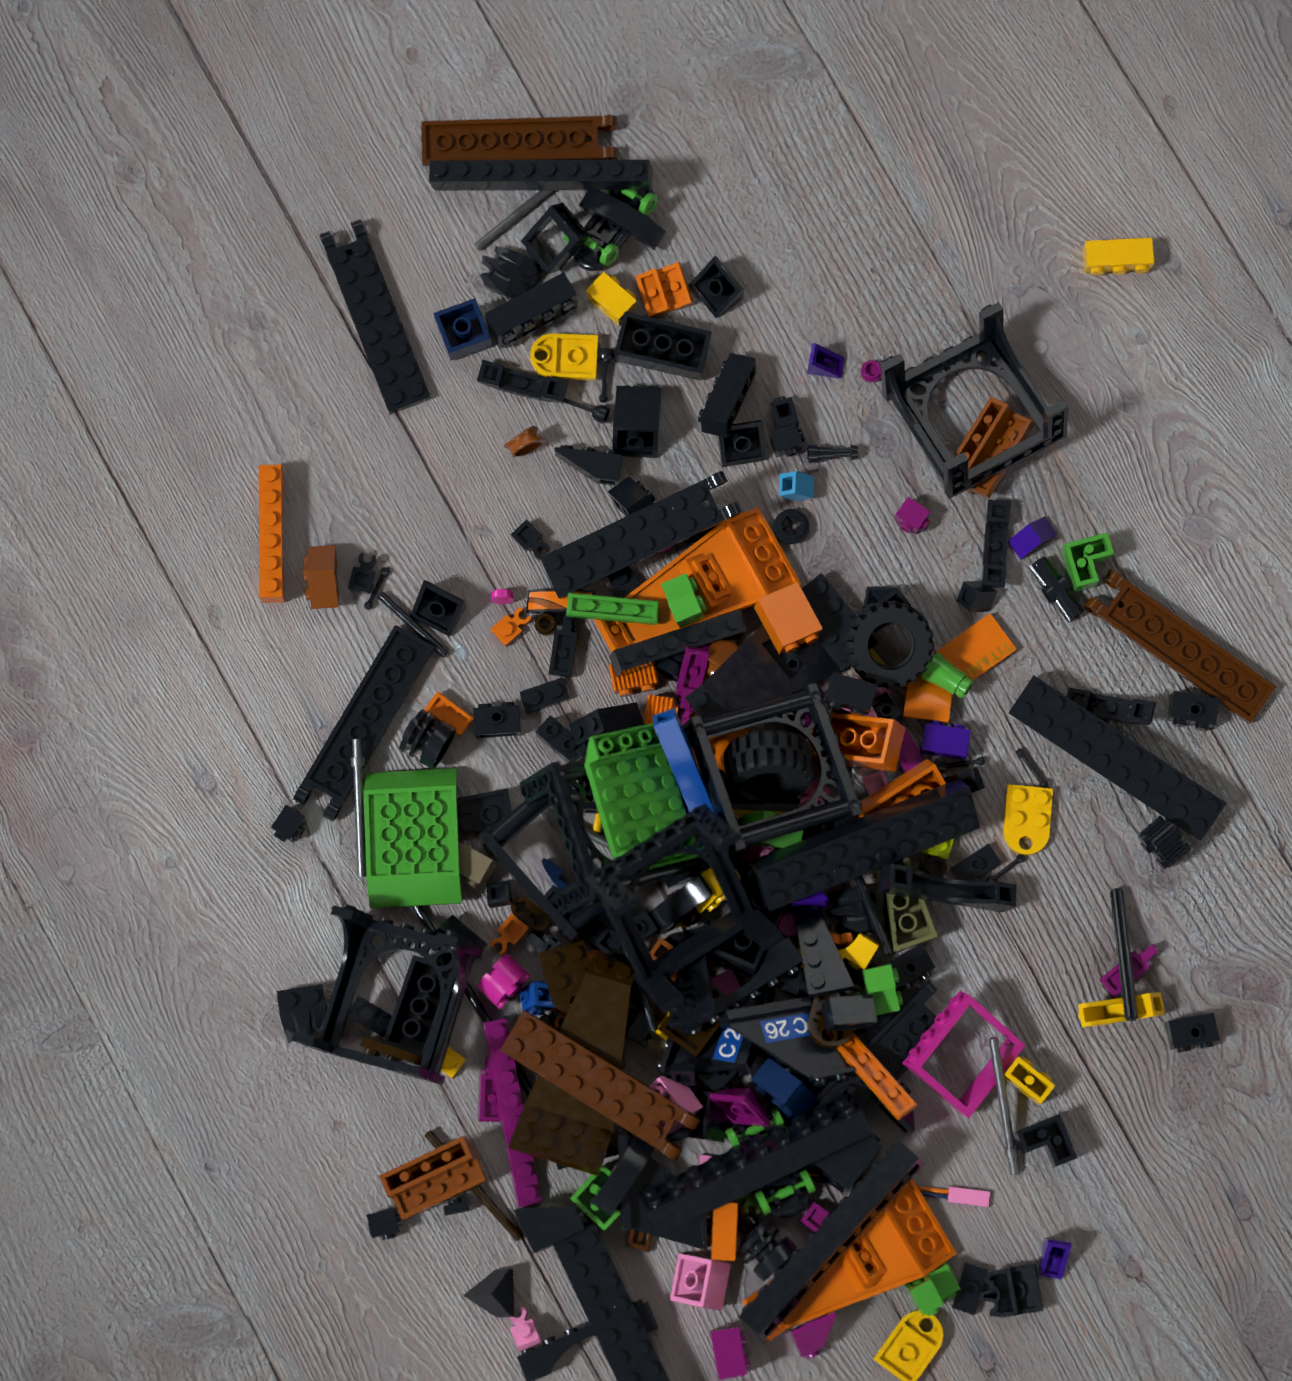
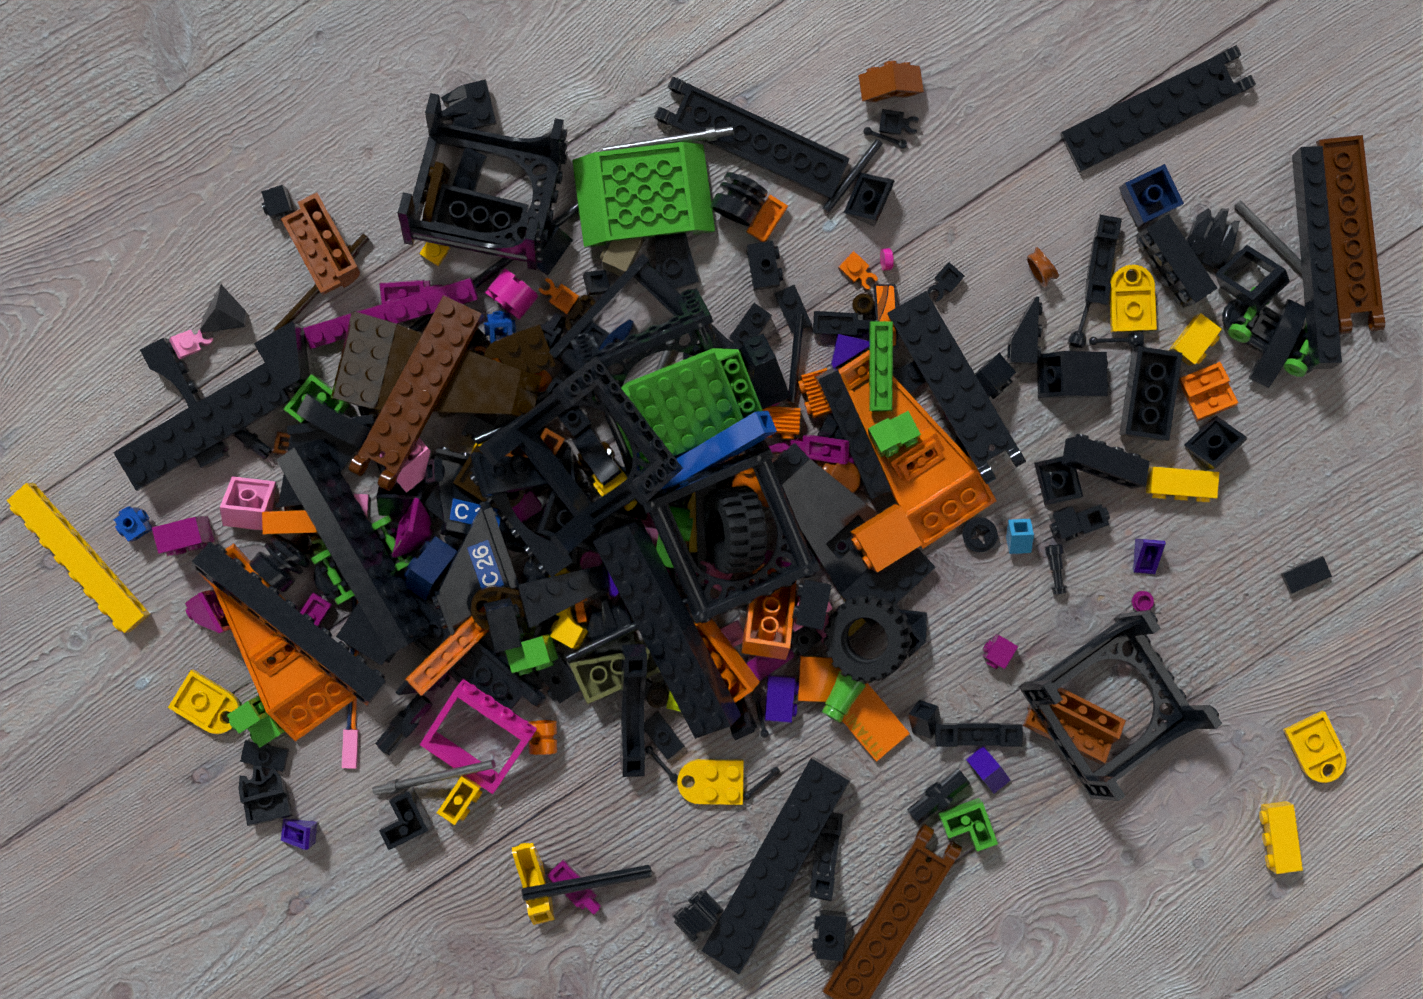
camera: 80 degrees right, 10 degrees up
(271, 534) = (963, 24): orange arch -> none
(288, 825) = (646, 75): black brick -> none
(455, 1206) = (298, 269): black plate -> none
(590, 645) = (846, 348): none -> dark purple slope
(591, 695) = (795, 358): none -> black bar
(636, 1272) = (251, 441): none -> black pin
(755, 322) = (1182, 483): none -> yellow brick
(856, 210) = (1306, 574): none -> black tile
(946, 1135) = (404, 724): none -> black piece
(974, 986) = (543, 738): none -> orange wheel
(1029, 214) = (1316, 746): none -> yellow plate
(1192, 1031) = (520, 951): black brick -> none

